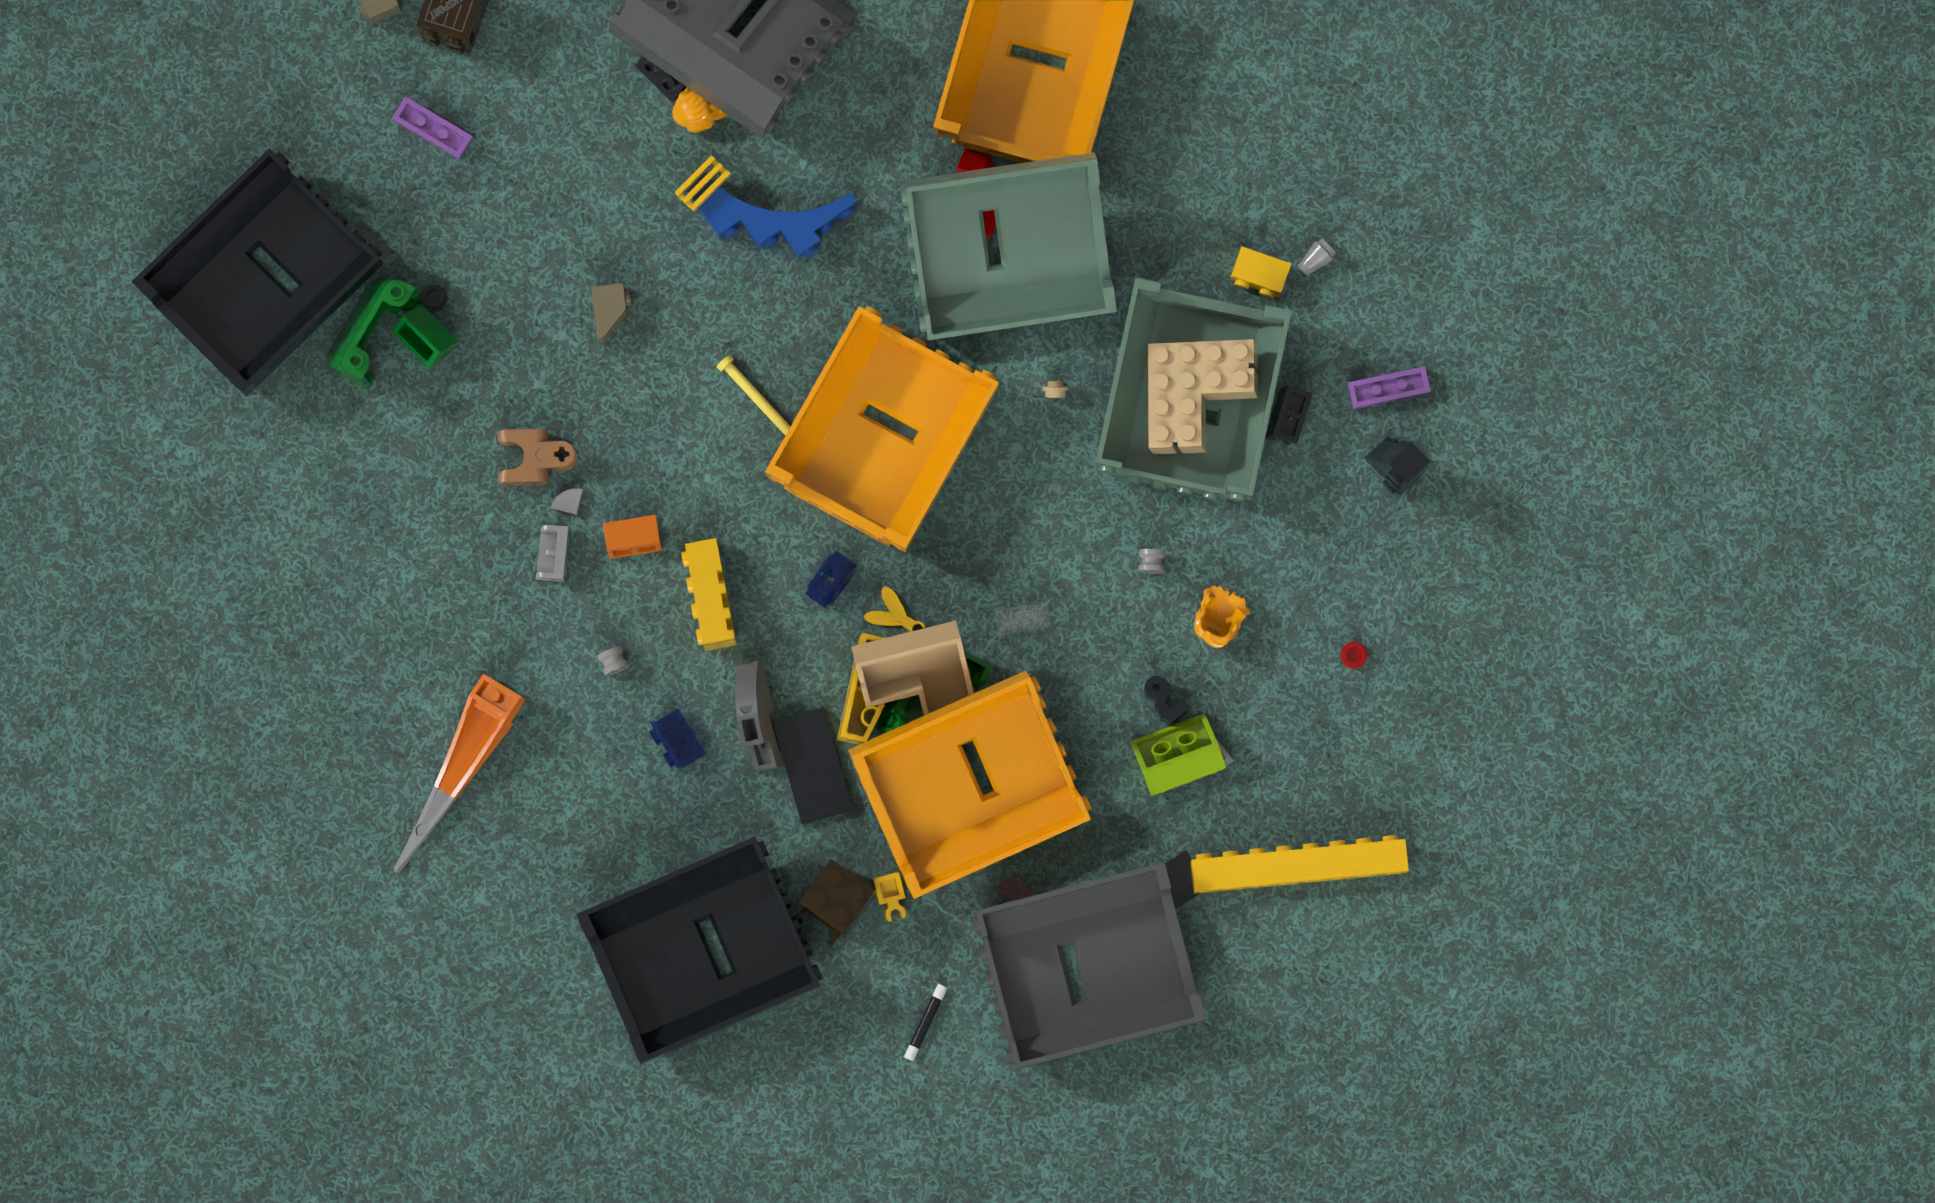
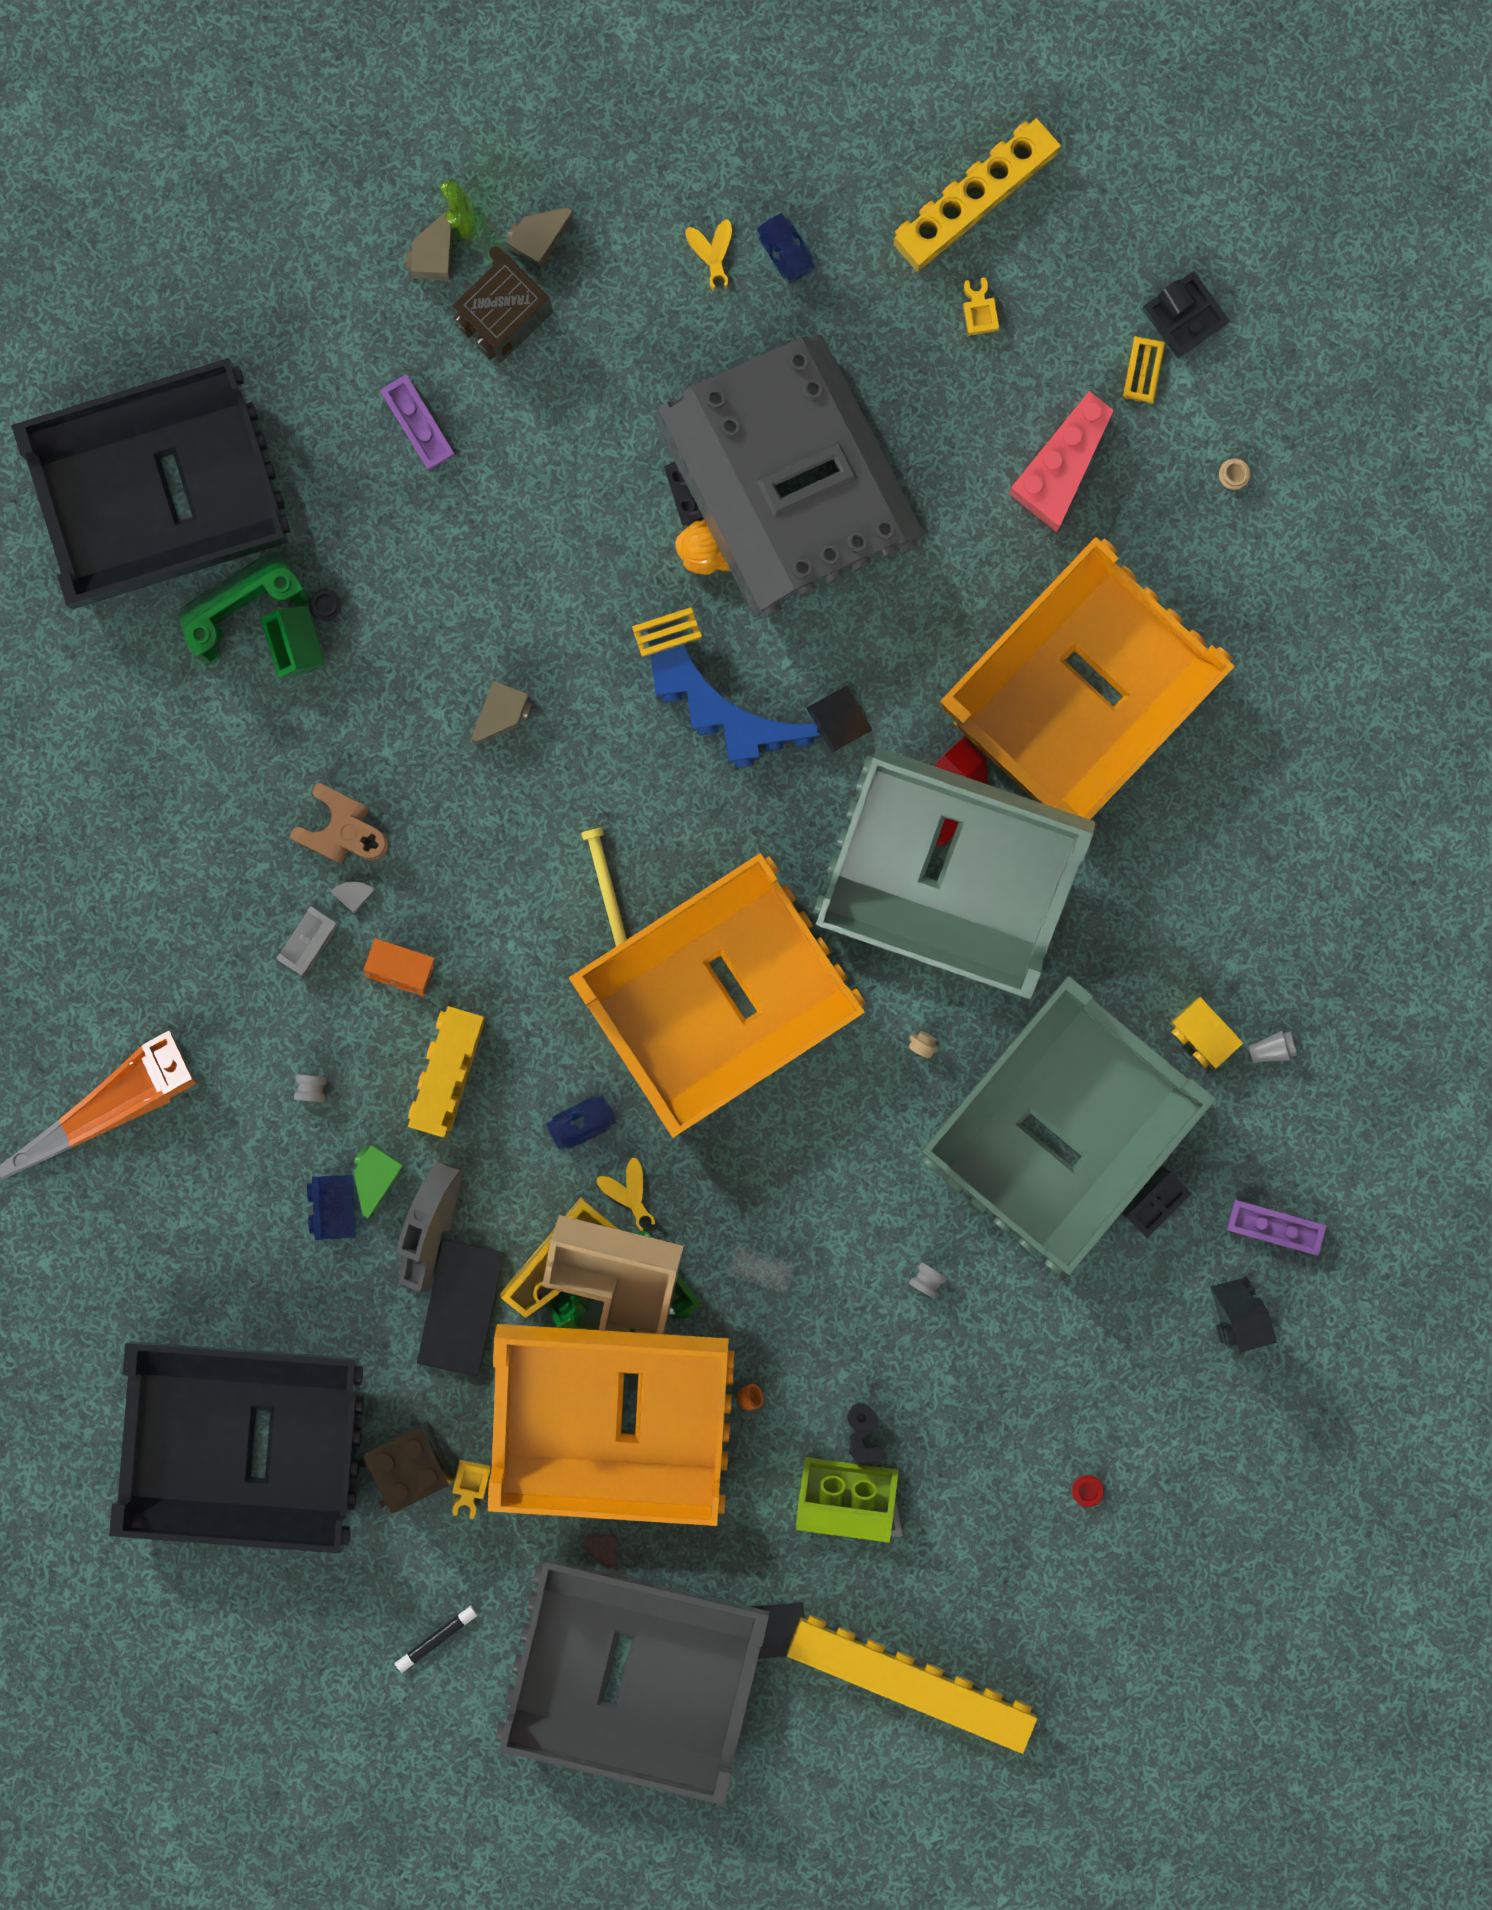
camera: 30 degrees right, 5 degrees up
(696, 700) = (374, 1177): none -> bright green slope
(864, 182) = (839, 719): none -> black piece
(1065, 717) = (749, 1397): none -> orange hinge
(1184, 378) = (1067, 1107): tan piece -> none
(1220, 616) = (968, 1378): light orange hair -> none

